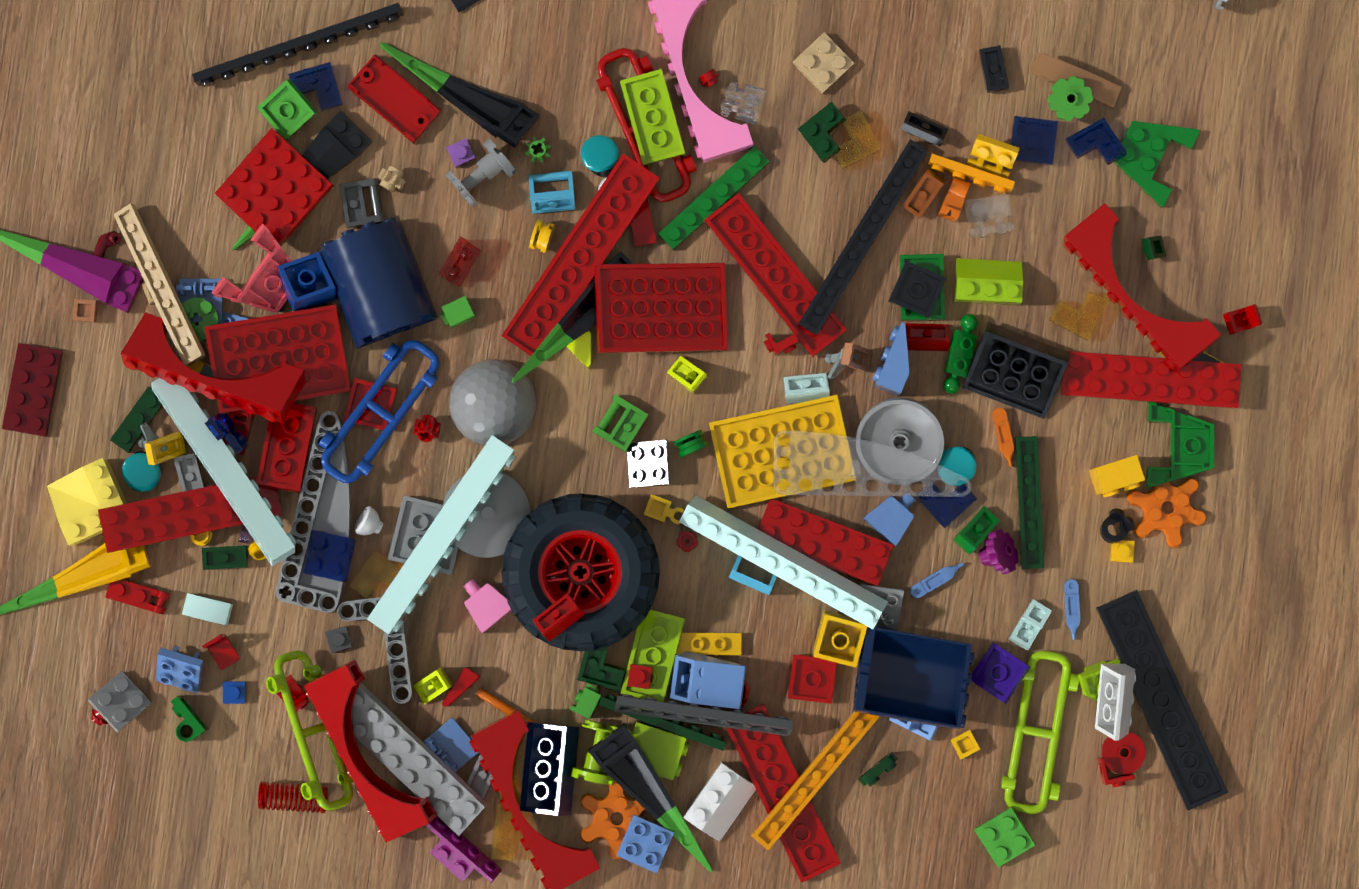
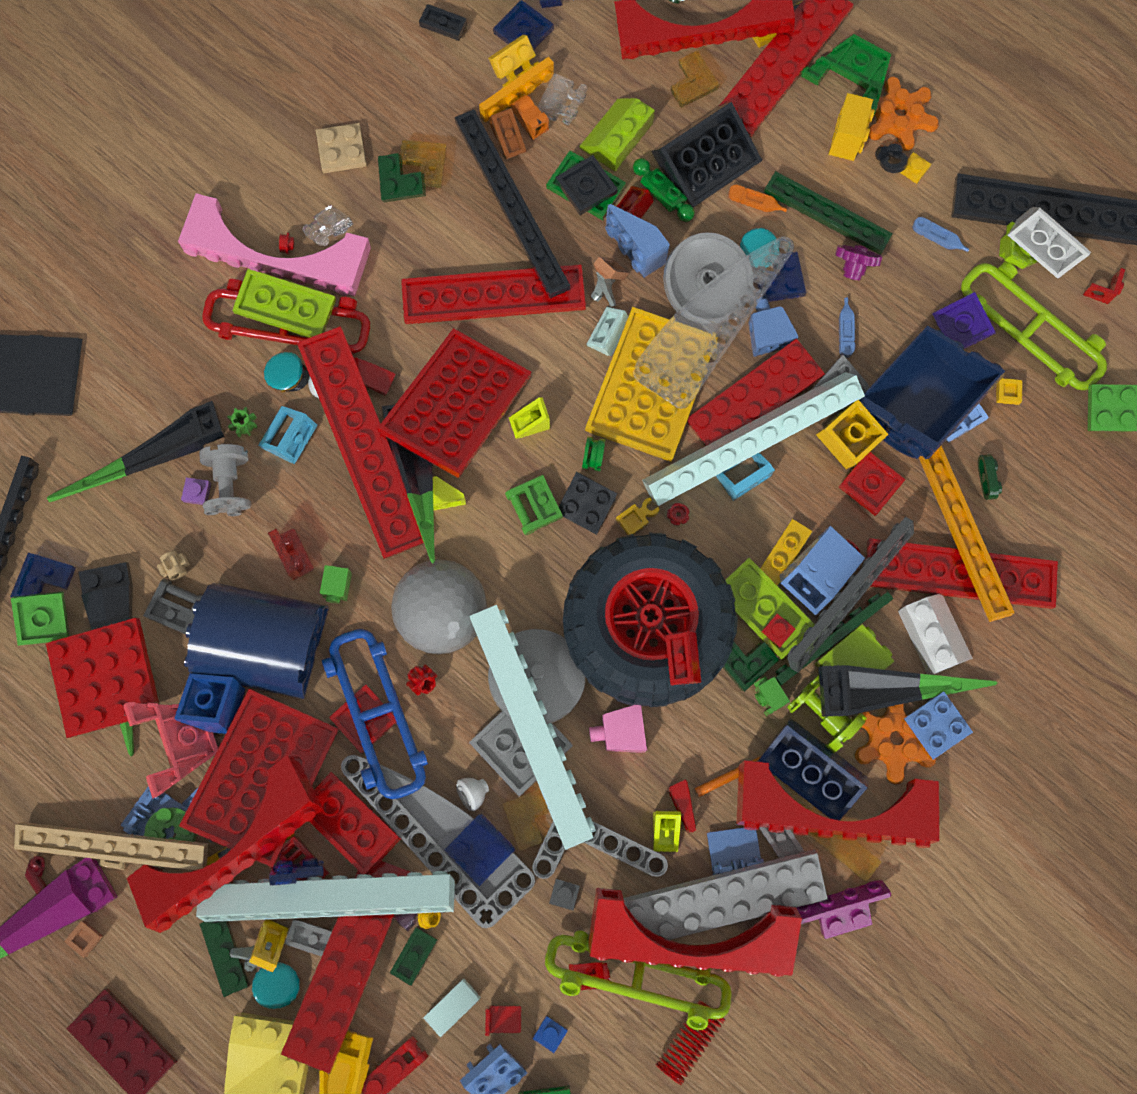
camera: 65 degrees left, 10 degrees down
(202, 539) = (381, 967): yellow plate -> none
(394, 98) = (104, 518): red piece -> none
(544, 237) = (322, 463): yellow wheel -> none
(713, 197) = (391, 305): green plate -> none
(786, 345) = (555, 333): red bracket -> none
(924, 129) = (446, 107): black plate -> none
(976, 530) = (828, 271): green plate -> none
(1030, 624) = (933, 277): light aqua slope -> none
(1131, 762) = (1084, 276): red plate -> none

